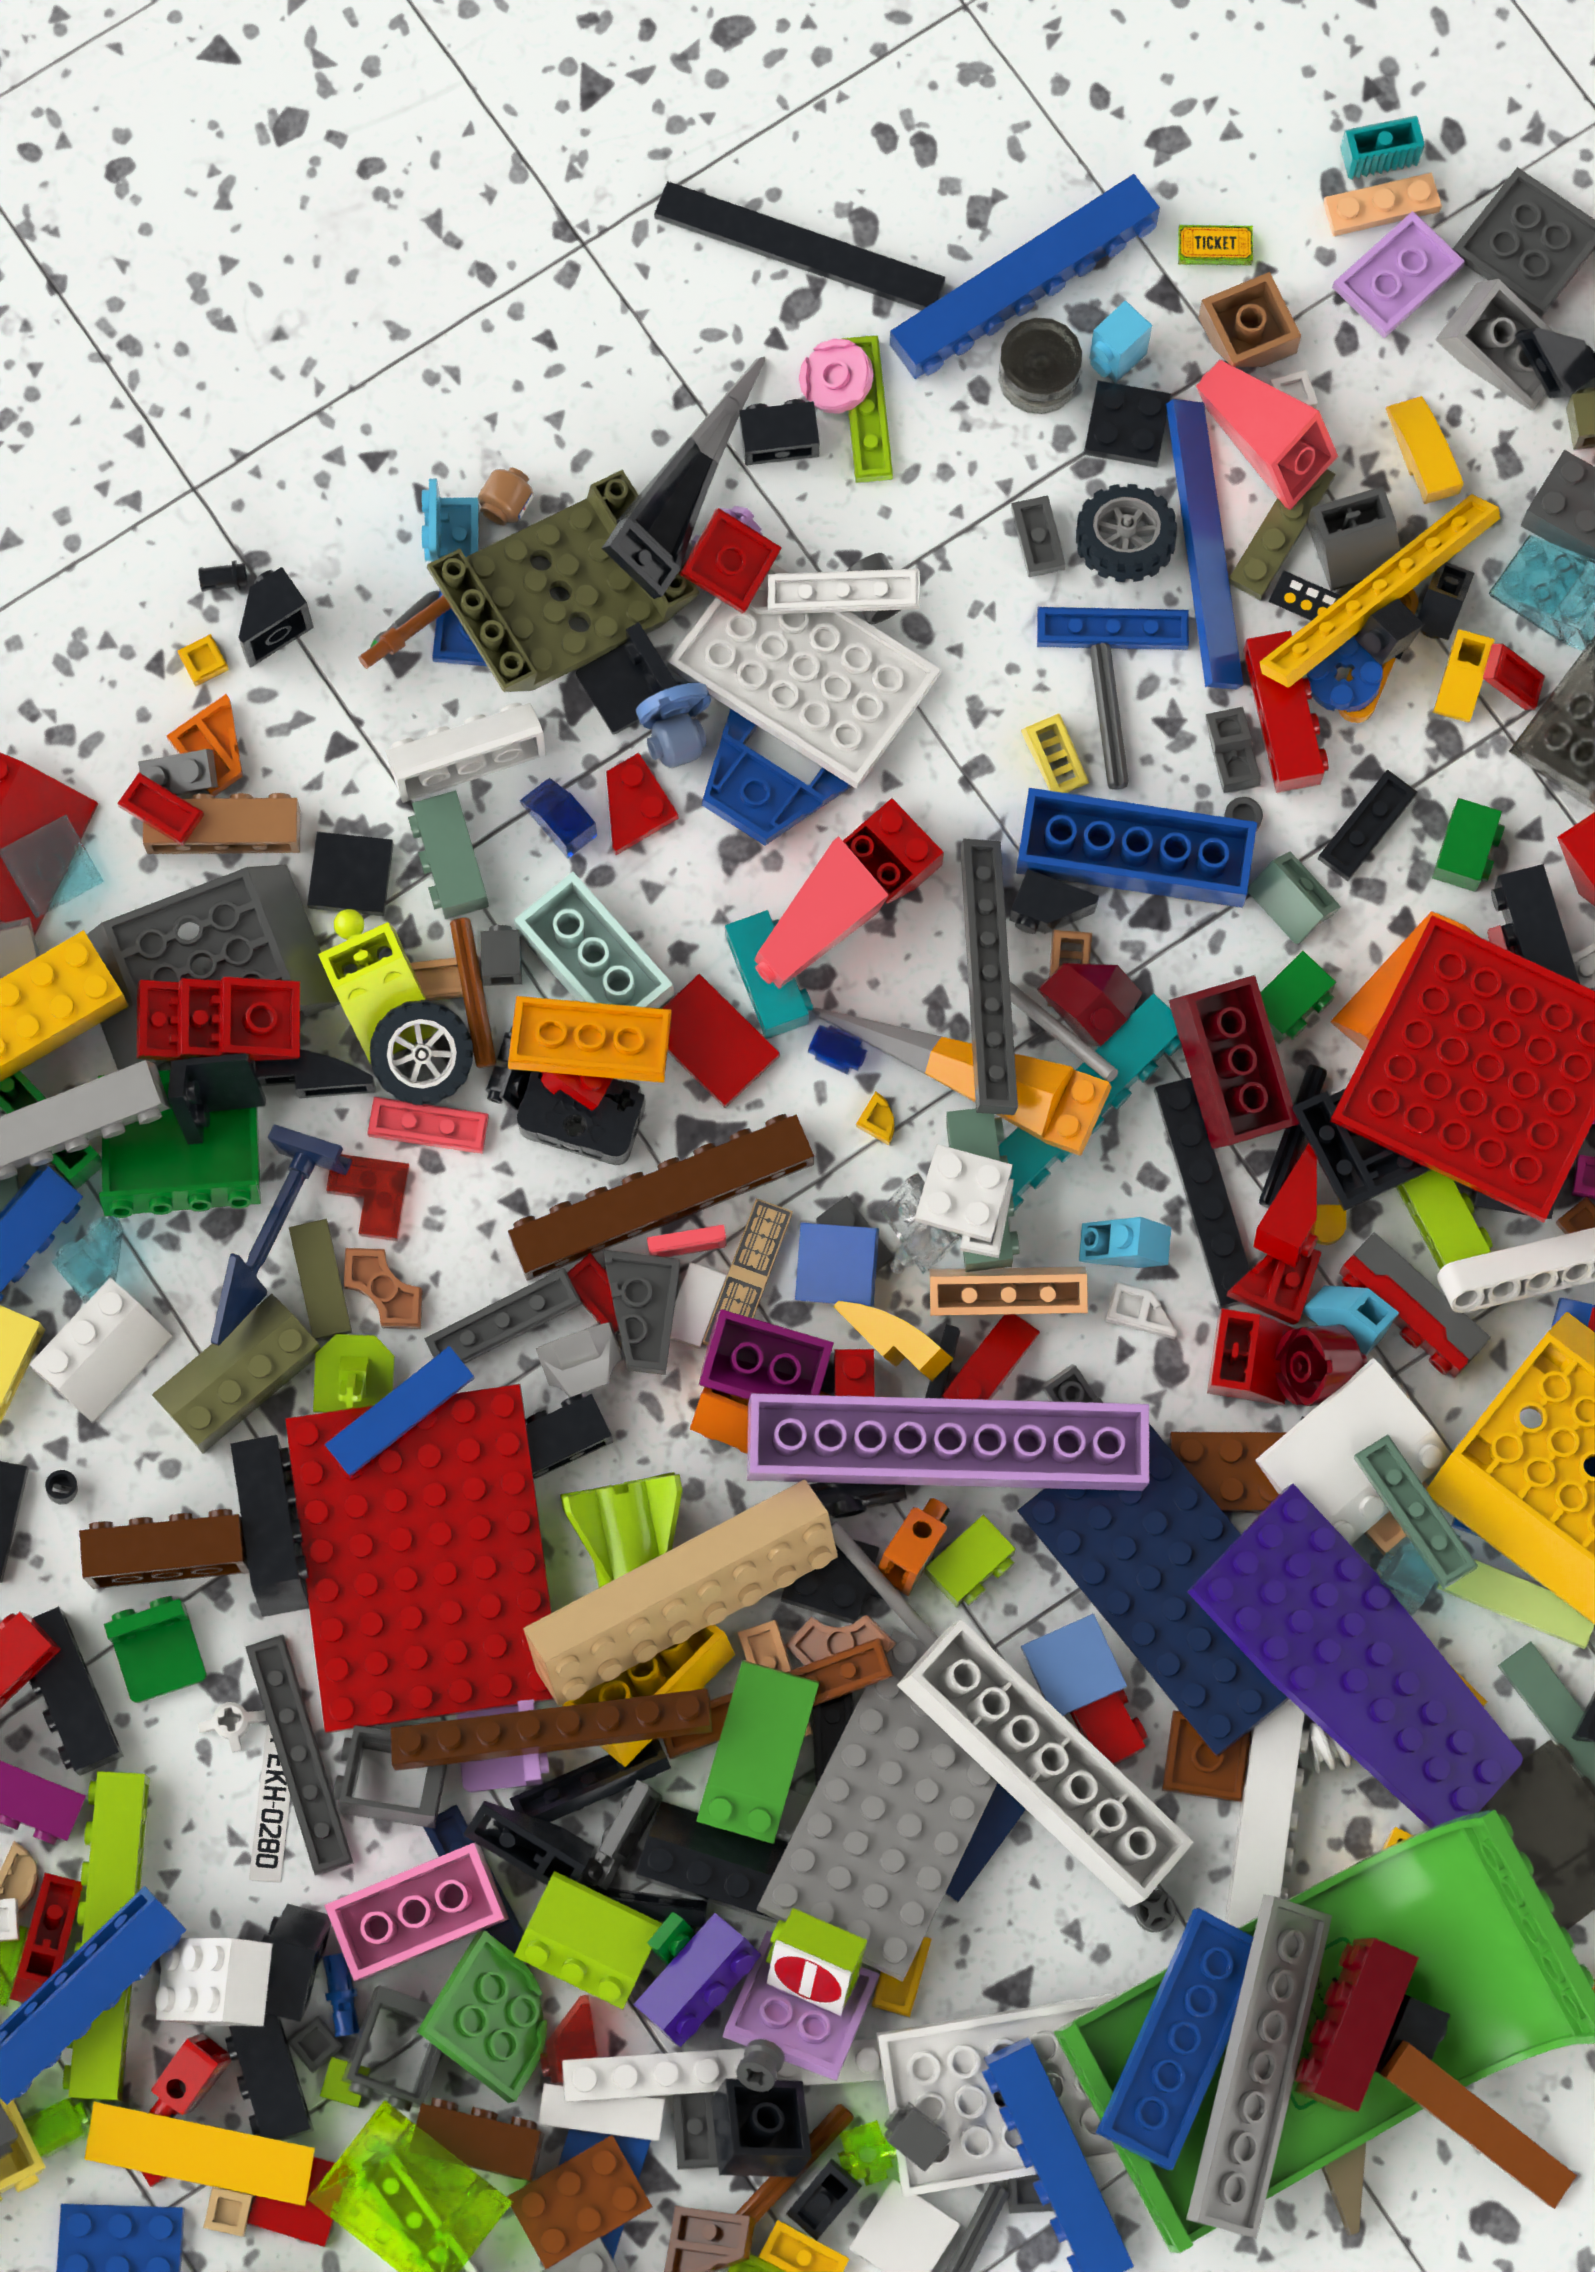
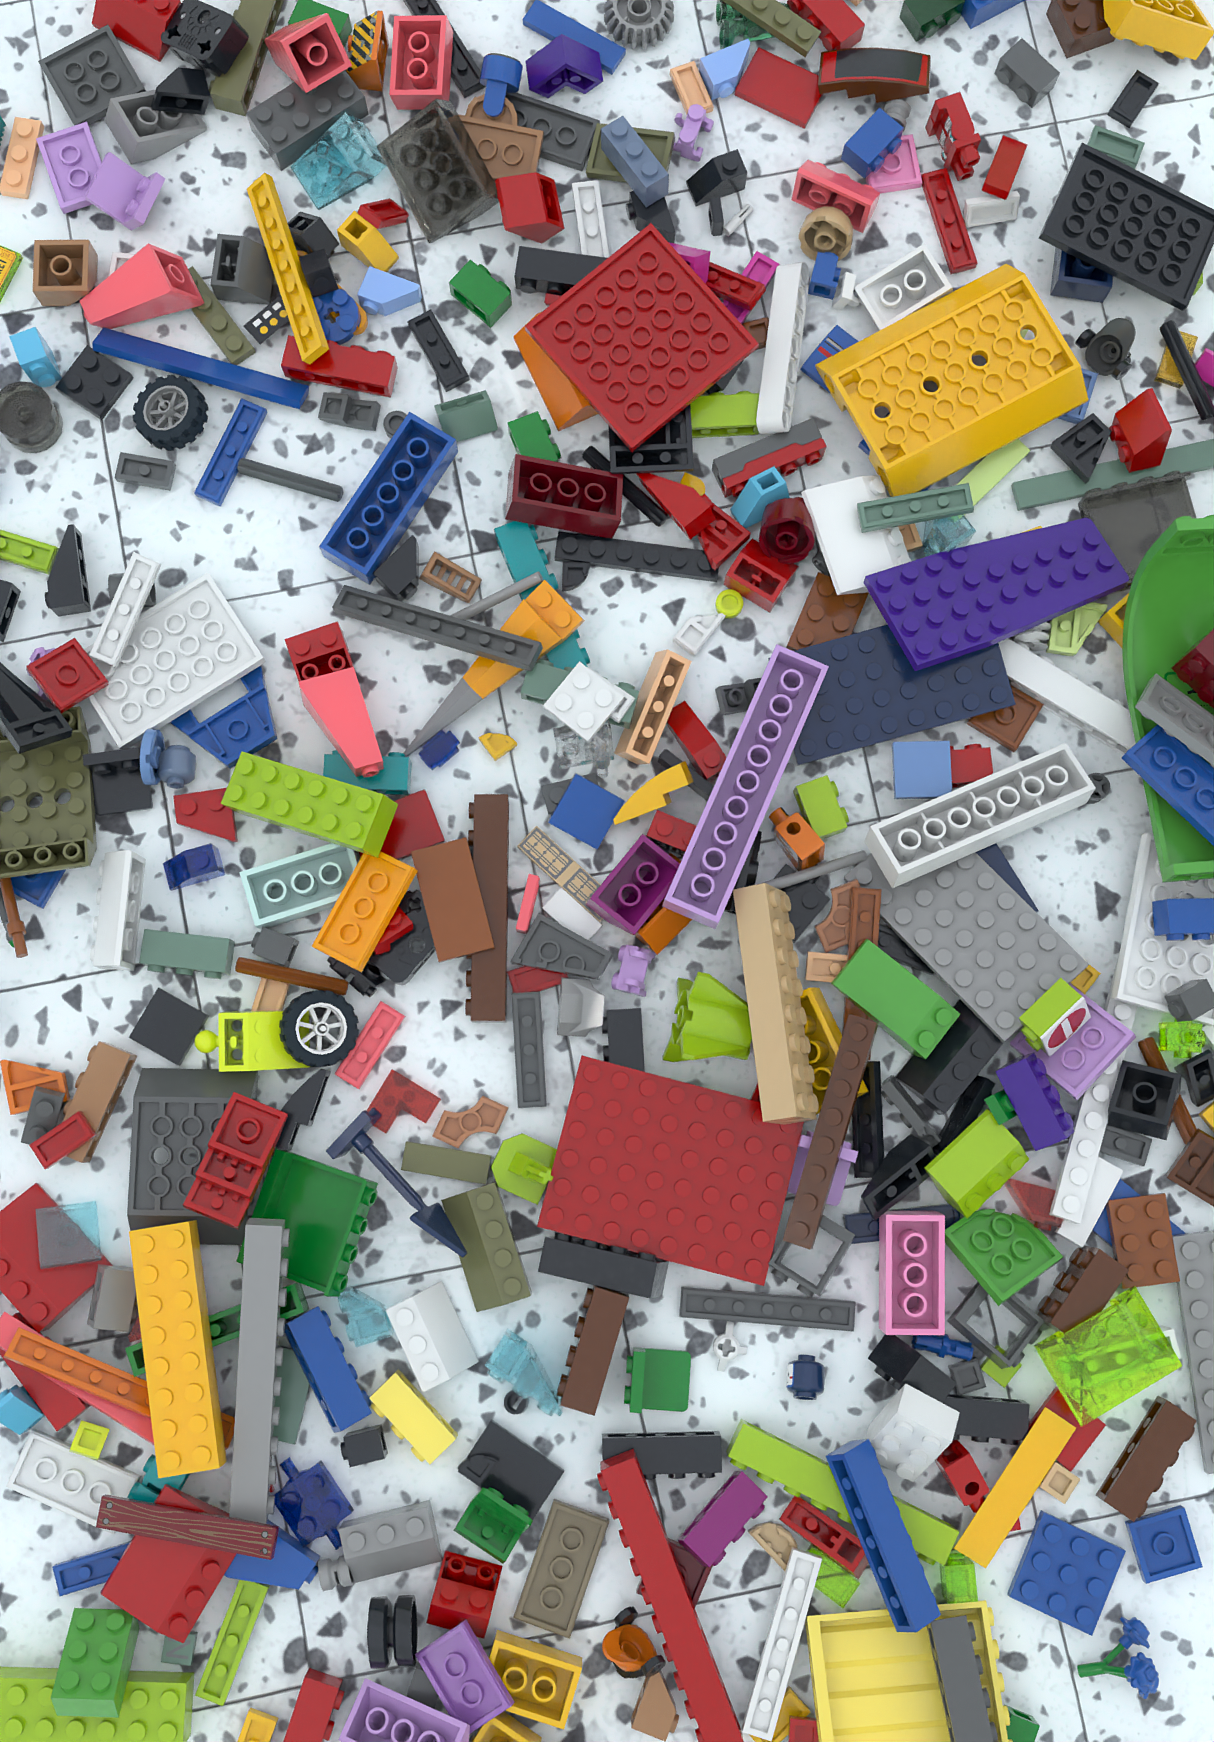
camera: 70 degrees left, 5 degrees up
(106, 1475) = (520, 1365): none -> clear light blue slope
(210, 1086) = (279, 1183): black bracket -> none
(231, 1834) = (805, 1378): none -> dark blue head
(270, 1817) = (800, 1344): white sticker -> none
(399, 1411) = (568, 1145): blue tile -> none
(649, 1144) = (452, 900): none -> dark orange tile
(658, 1407) = (632, 969): none -> lavender piece
(693, 918) = (310, 804): none -> lime brick
(760, 2065) = (1109, 1083): dark grey wheel -> none
(857, 506) = (68, 578): none -> black slope
(1062, 737) = (301, 534): light yellow slope -> none
(1091, 999) = (479, 571): dark red slope -> none
(1125, 1243) = (650, 620): medium azure slope -> none
(1144, 1122) = (574, 574): none -> black tile
(1195, 1336) = (729, 603): none -> neon yellow tile
(1361, 1799) = (1072, 629): none -> yellowish green wing
(1391, 348) = (123, 191): none -> lavender bracket
(1410, 726) = (387, 293): none -> light blue slope
(1425, 450) = (203, 203): yellow slope -> none

